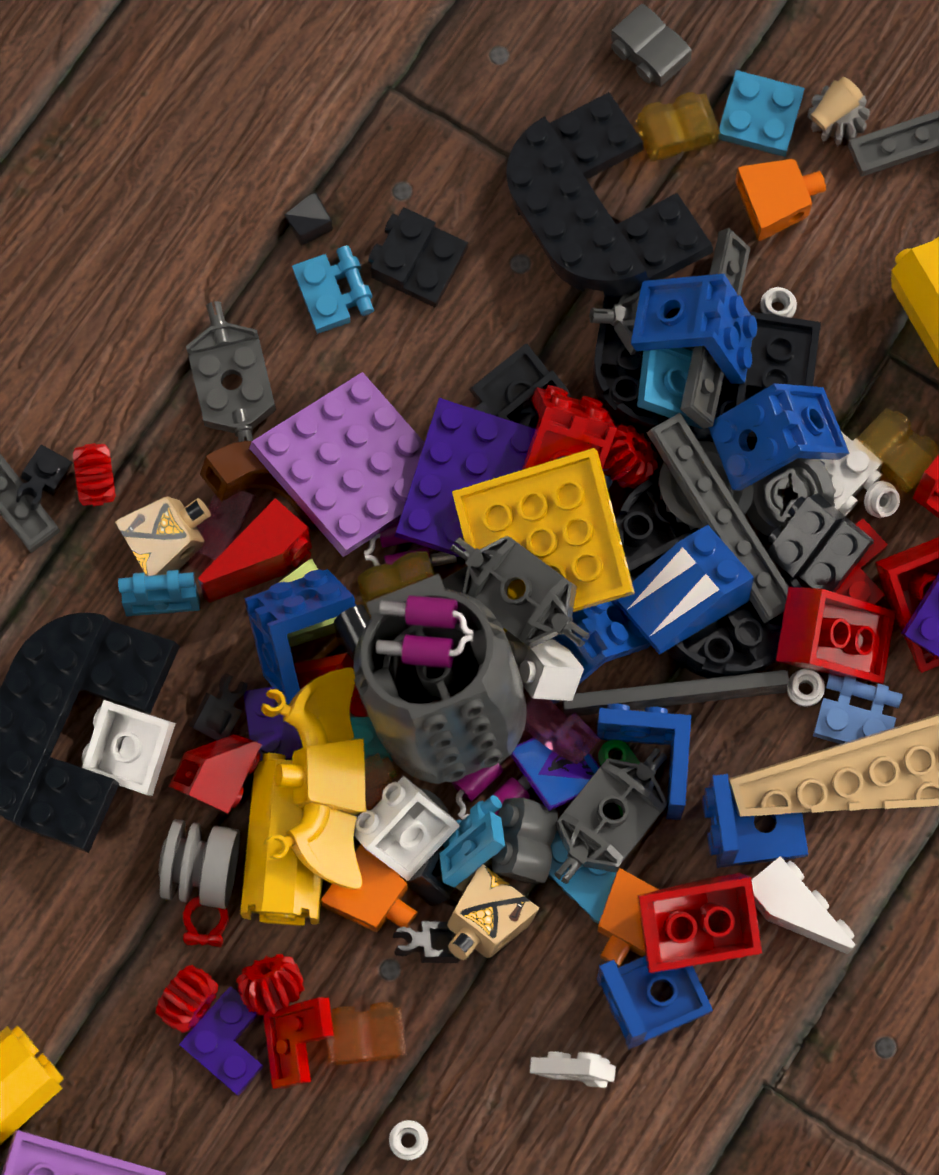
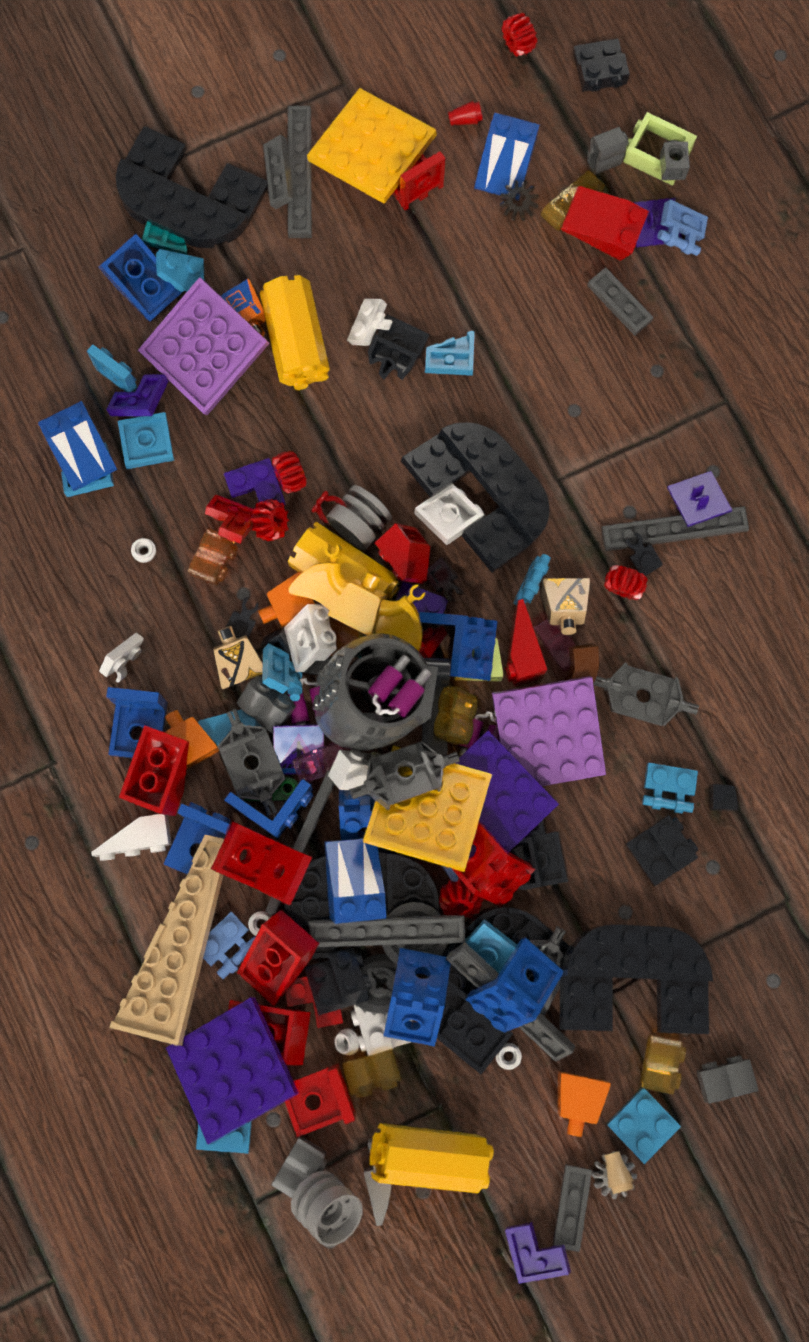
camera: 115 degrees right, 5 degrees up
(734, 725) = (262, 863): none -> red bracket

